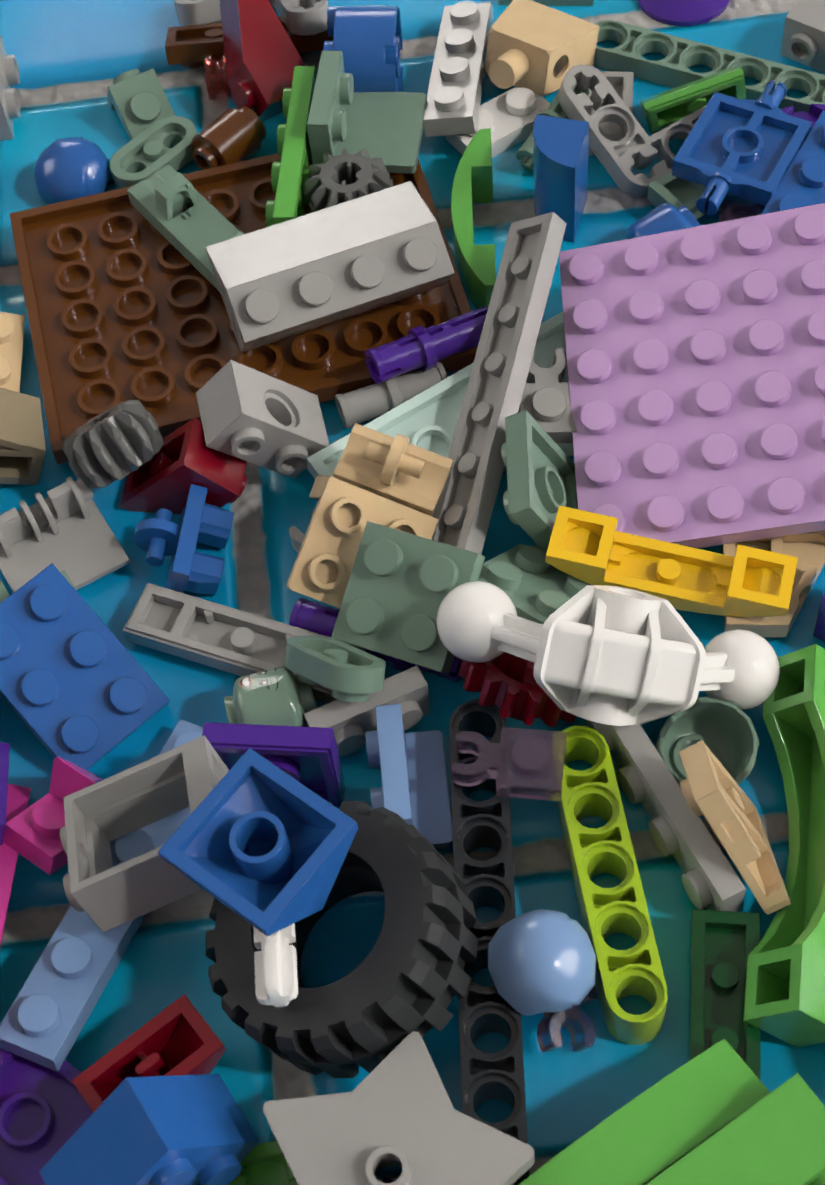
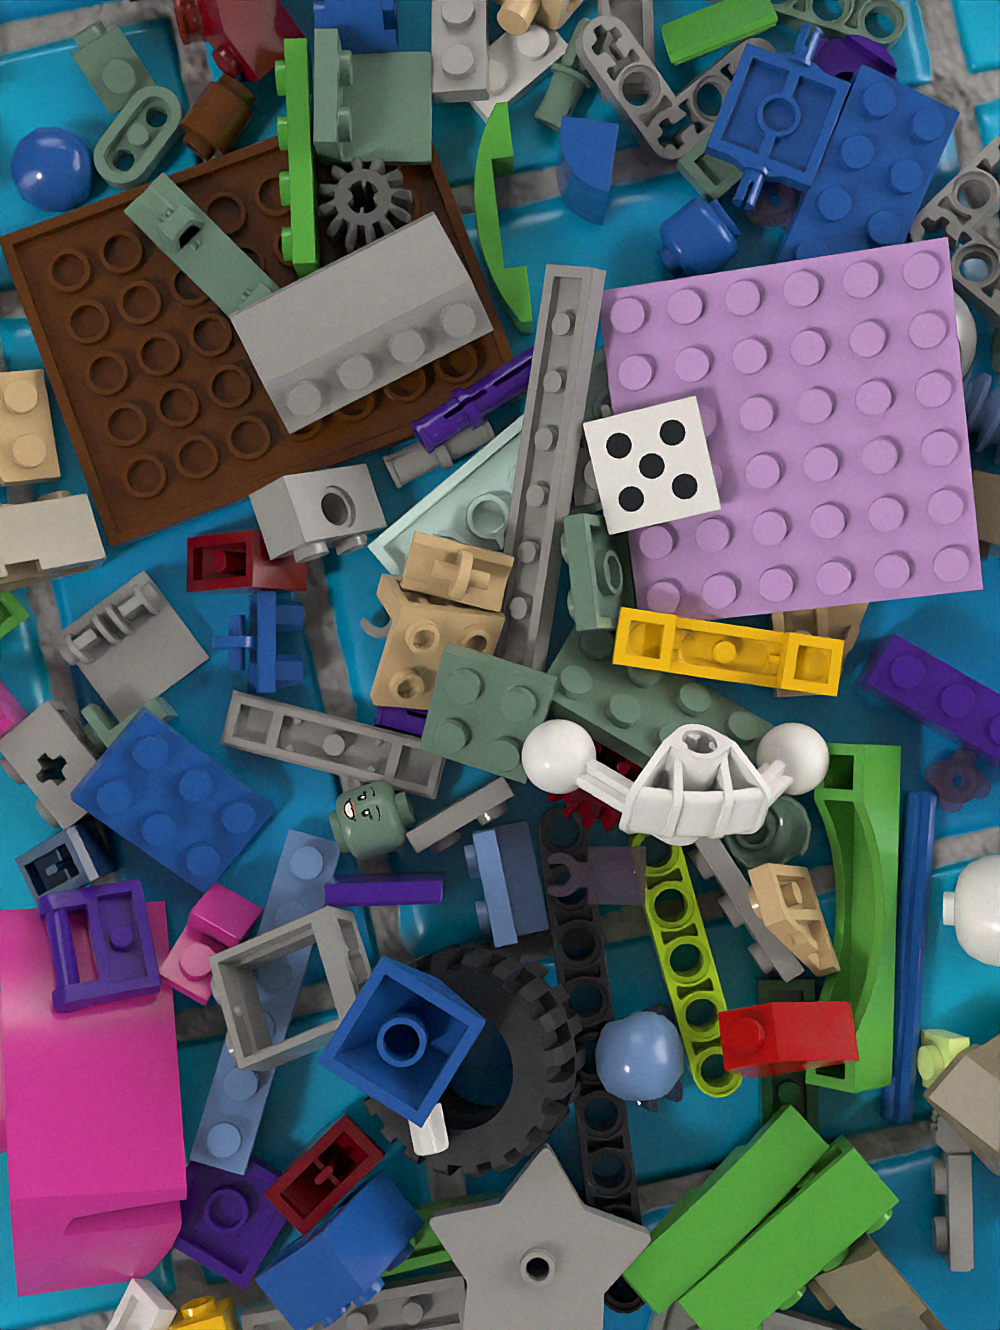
camera: 10 degrees left, 30 degrees up
(113, 444) = (174, 553): dark grey gear -> none
(335, 665) = (429, 791): sand green plate -> none
(601, 387) = (652, 465): none -> white tile
(716, 943) = (787, 1037): none -> red slope

